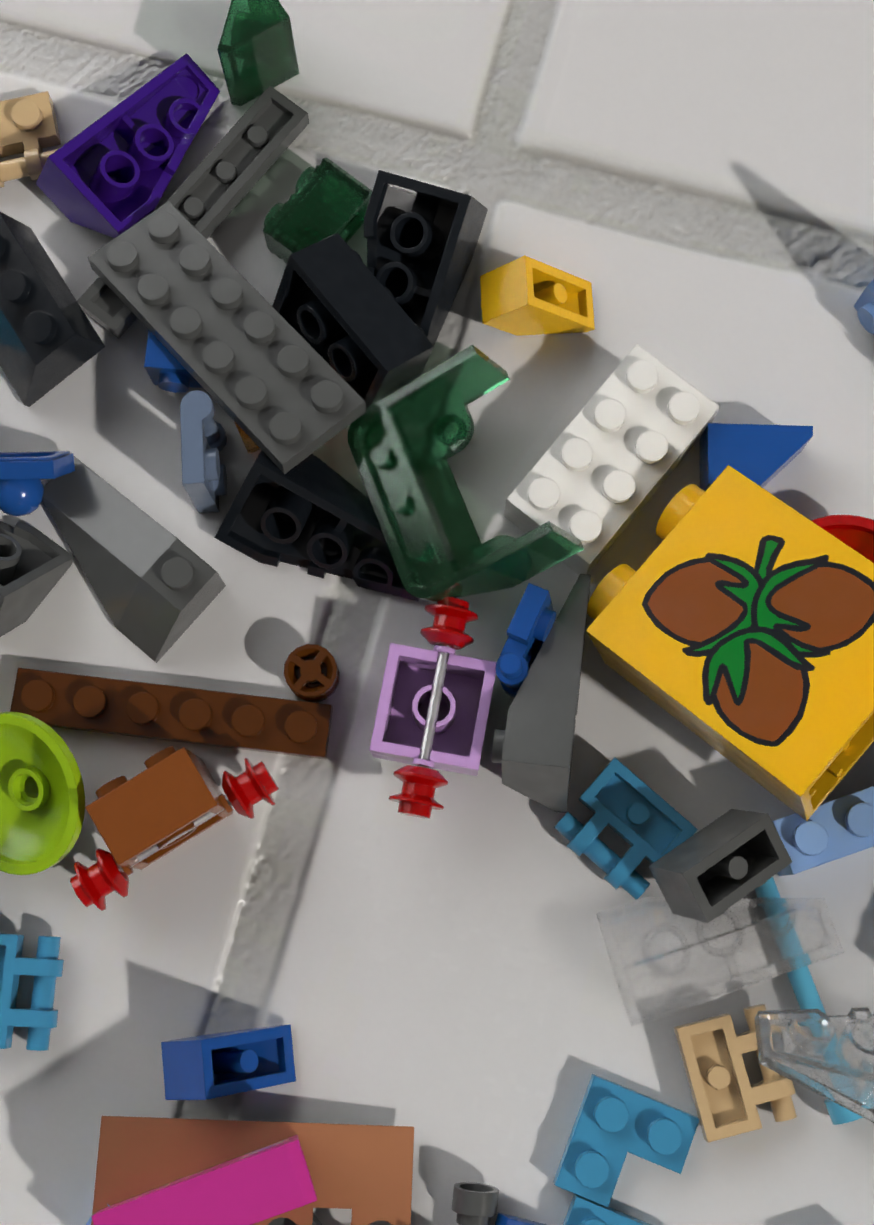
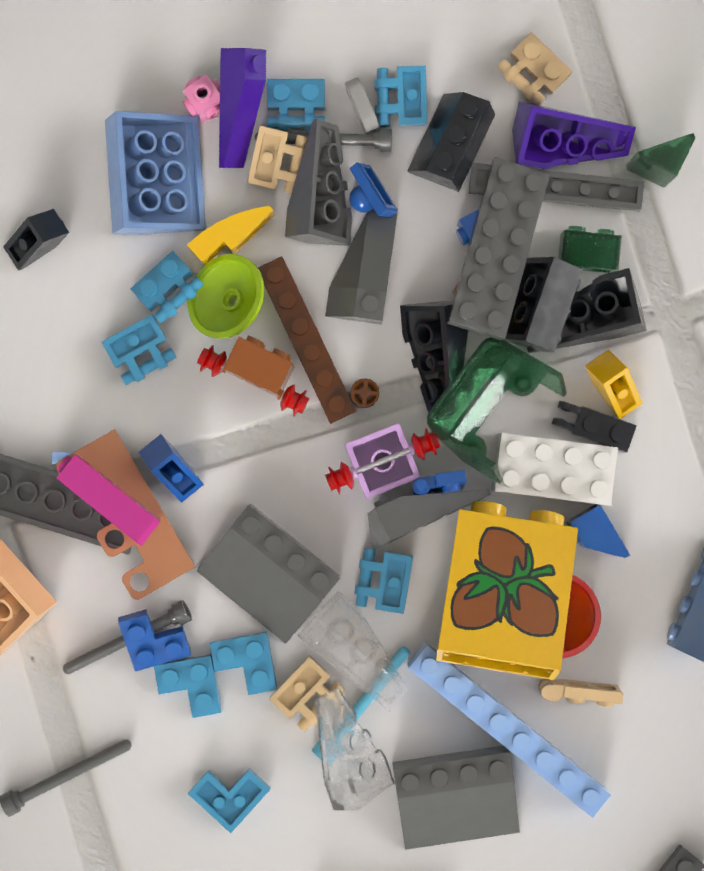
camera: 55 degrees right, 10 degrees up
(200, 447) = (428, 280): sand blue plate -> none
(500, 1011) = (268, 573): none -> dark grey slope
(581, 366) = (597, 427): none -> black hinge
(720, 864) = (392, 633): dark grey brick -> none

